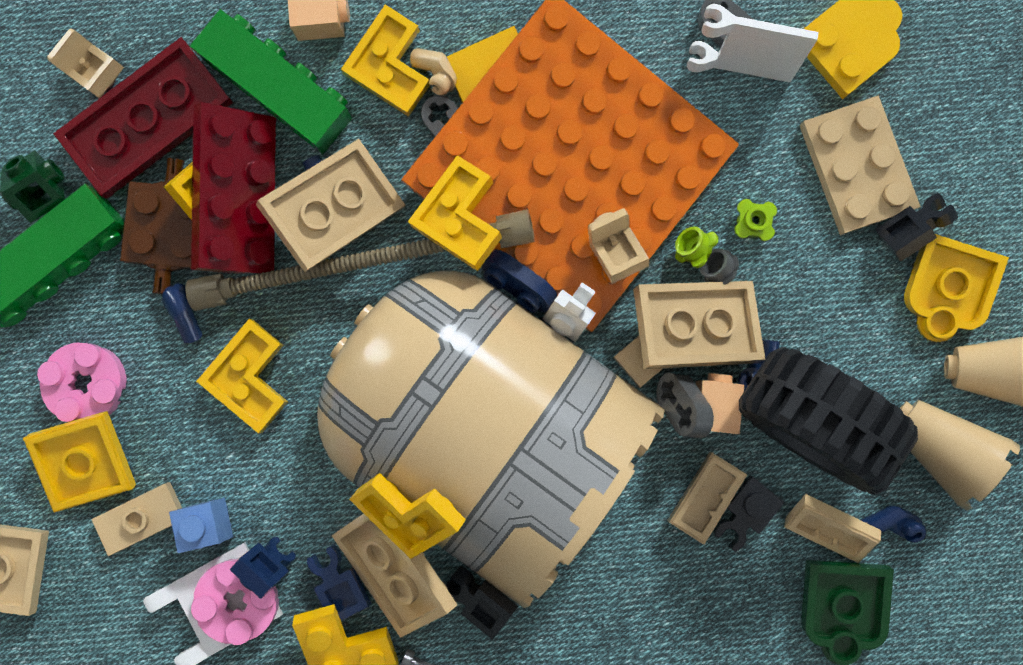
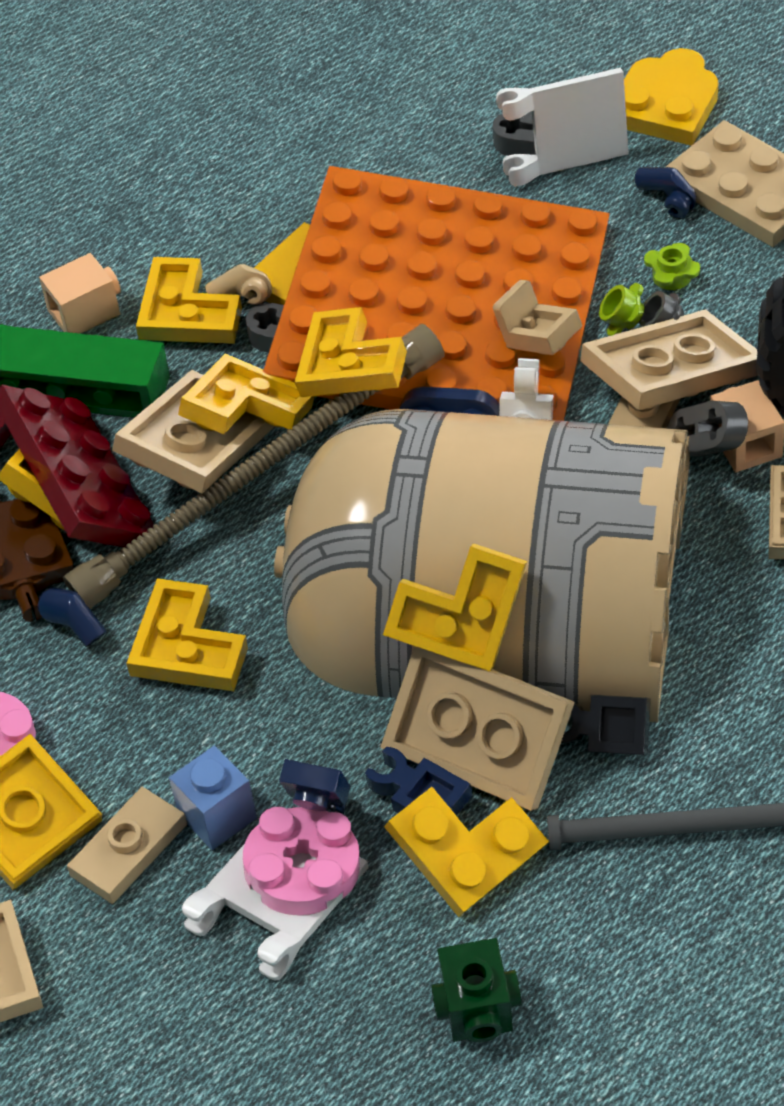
camera: 25 degrees left, 35 degrees down
(370, 185) = (240, 387): none -> yellow plate
(801, 141) = (679, 192): none -> dark blue arm

